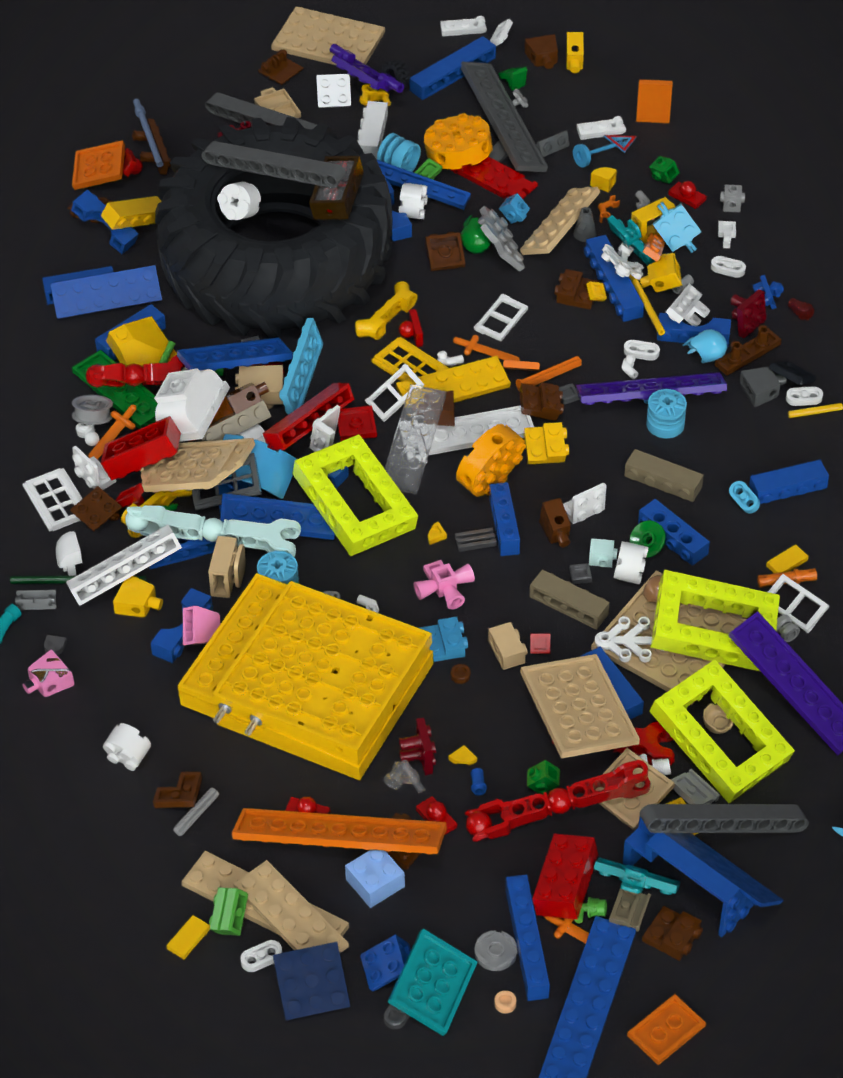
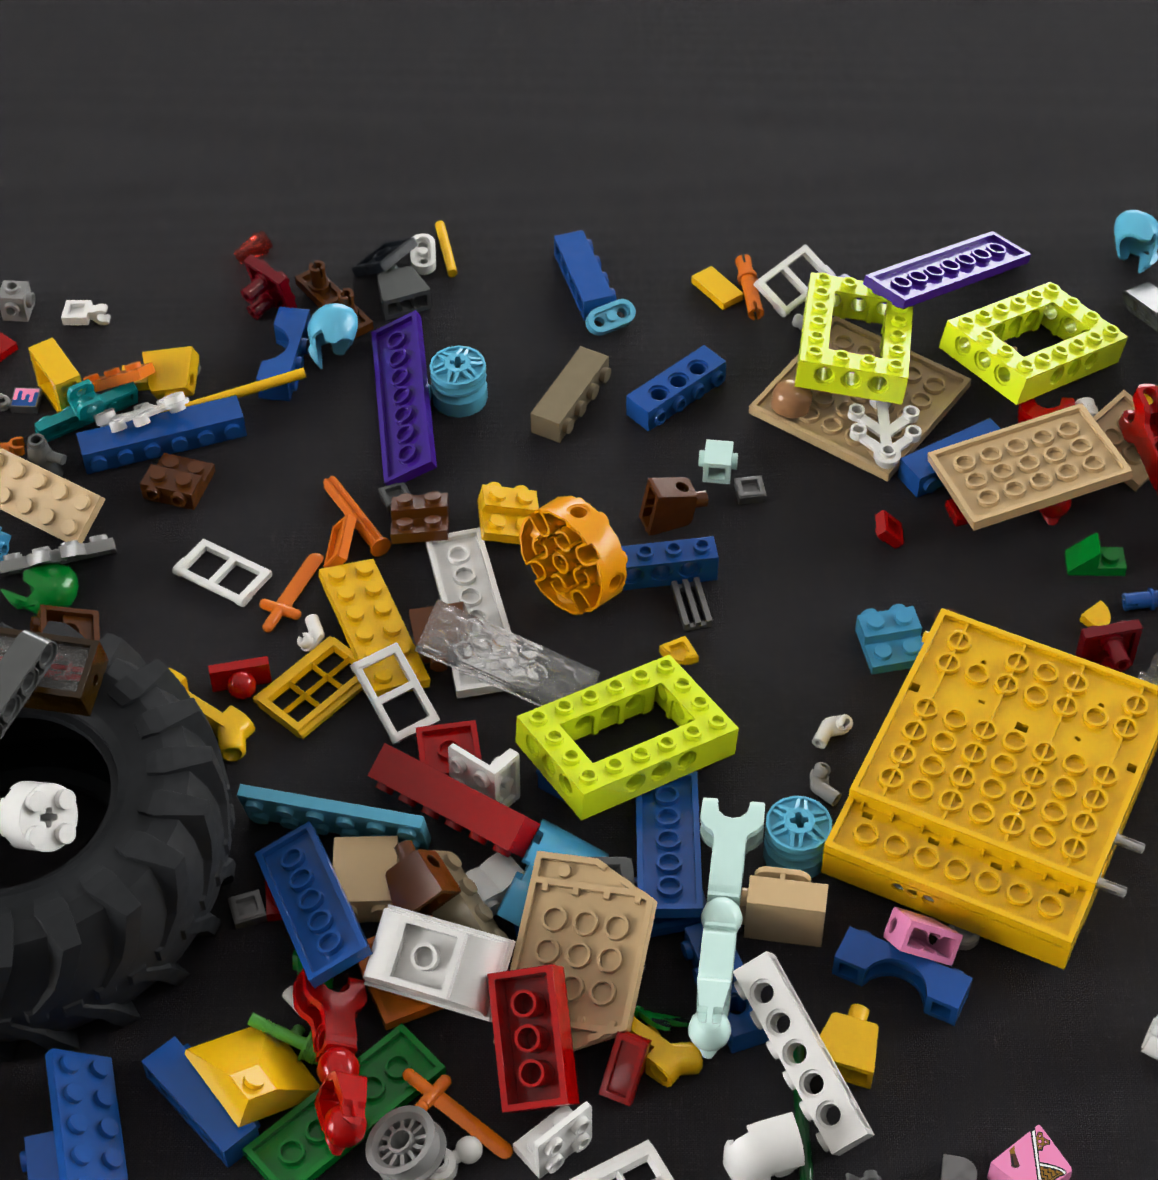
camera: 90 degrees left, 0 degrees up
(96, 509) = (648, 1124): reddish brown hinge -> none
(444, 582) = (788, 633): bright pink brick -> none
(507, 645) = (903, 561): tan brick -> none
(517, 763) = (1091, 559): none -> green slope
(543, 777) = (1140, 525): green brick -> none
(569, 599) = (805, 497): dark tan brick -> none
(586, 503) = (629, 475): white bracket -> none
(596, 291) = (190, 452): yellow tile -> none
(627, 366) = (350, 429): white arm -> none
(630, 562) = (746, 423): white brick -> none
(642, 349) = (317, 410): white plate -> none
(644, 532) = (701, 406): green dish -> none
(676, 227) = (84, 346): medium azure plate -> none
(686, 305) = (251, 349): white plate -> none
(694, 789) = (1110, 383): light grey plate -> none
(728, 266) = (156, 315): white plate -> none
(774, 289) = (218, 274): blue hips -> none

